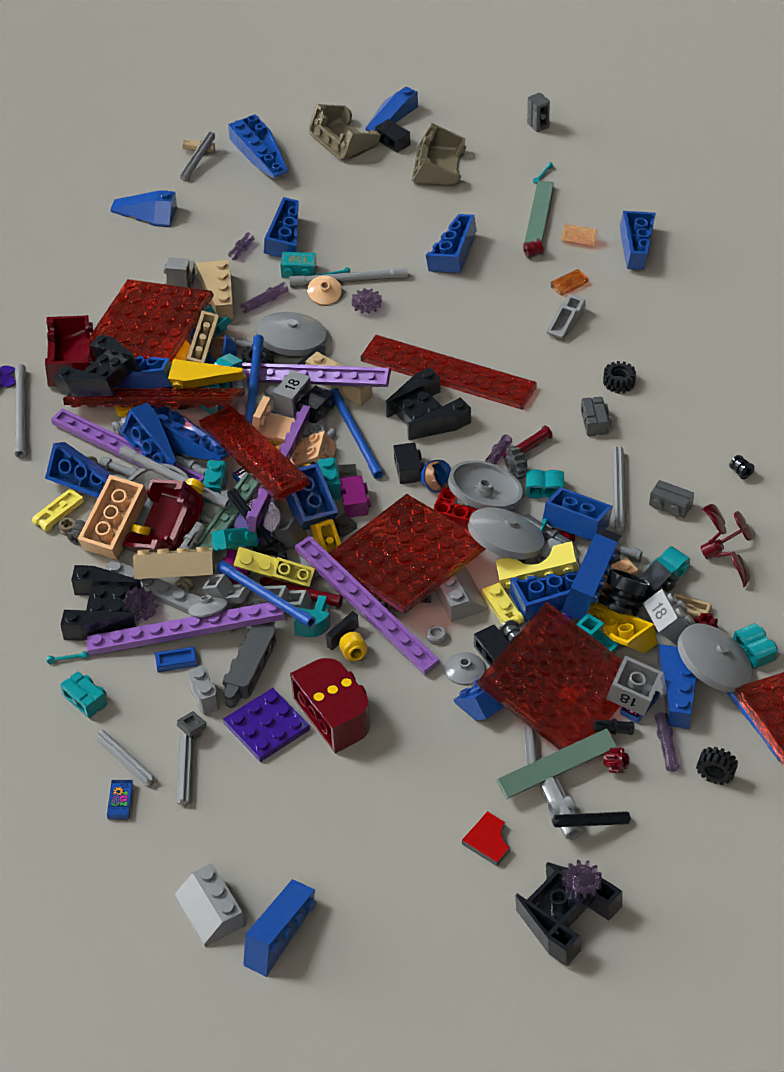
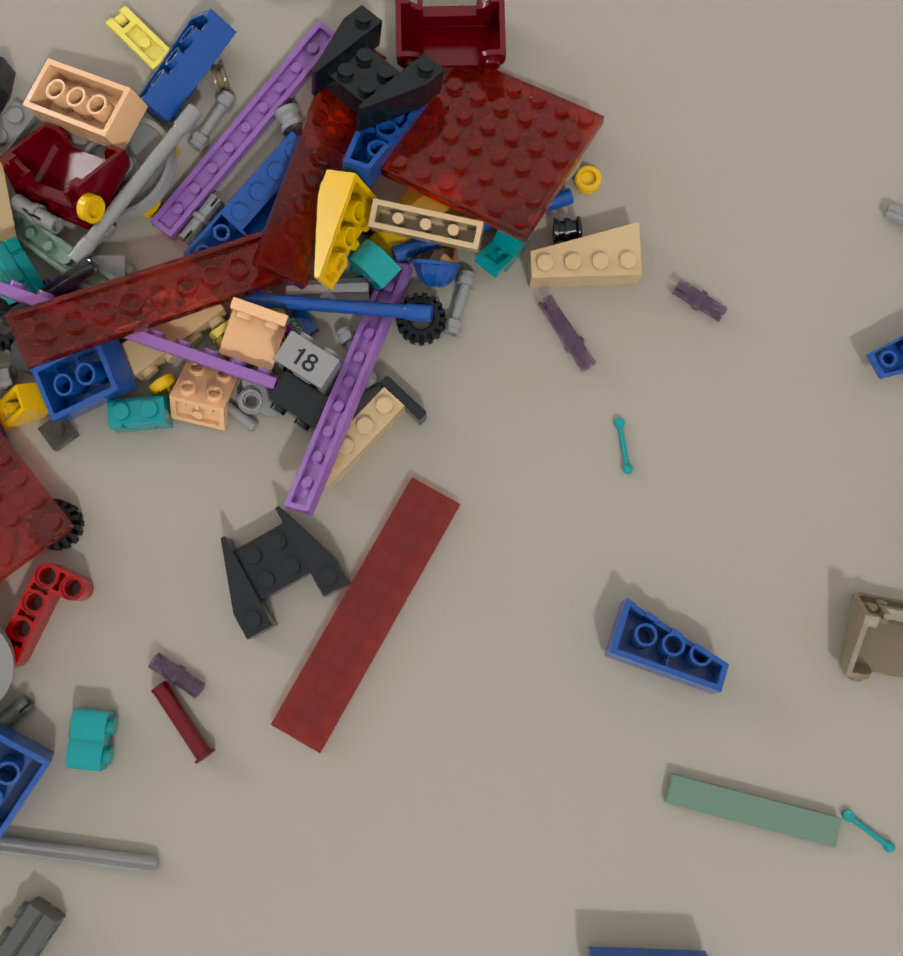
camera: 90 degrees right, 35 degrees up
(67, 521) = (105, 47): dark tan bush -> none
(75, 532) = (89, 64): dark grey bush -> none
(140, 529) = (66, 145): yellow tile -> none
(146, 432) = (245, 143): blue wedge -> none
(154, 207) = (807, 155): blue wedge -> none
(180, 272) = (621, 202): light grey brick -> none
(215, 477) = (153, 248): teal brick -> none
(283, 229) = (717, 366): blue wedge -> none
(291, 333) = (468, 370): light grey dish -> none
(298, 264) = (638, 389): teal brick -> none
(322, 295) = (590, 432): light nougat dish -> none
(347, 470) = (162, 443): clear smoke plate -> none
(354, 276) = (610, 542): light grey piece -> none
(354, 496) = (111, 450): magenta brick -> none
(366, 300) = (547, 486): clear purple gear -> none
(373, 464) = (174, 481): blue piece -> none
(408, 462) = (162, 533): black brick -> none
(435, 475) = (122, 571): blue piece -> none
(485, 485) = (84, 645): light grey dish -> none
(516, 462) = (128, 698): dark grey gear -> none
(533, 248) = (651, 787): dark red bush -> none
(567, 316) = (468, 823): light grey slope -> none
(569, 282) = (565, 839): clear orange plate -> none
(579, 234) = (680, 874): clear orange plate -> none
(595, 416) = (226, 839): dark grey brick -> none
(619, 384) = (303, 905): black tyre -> none

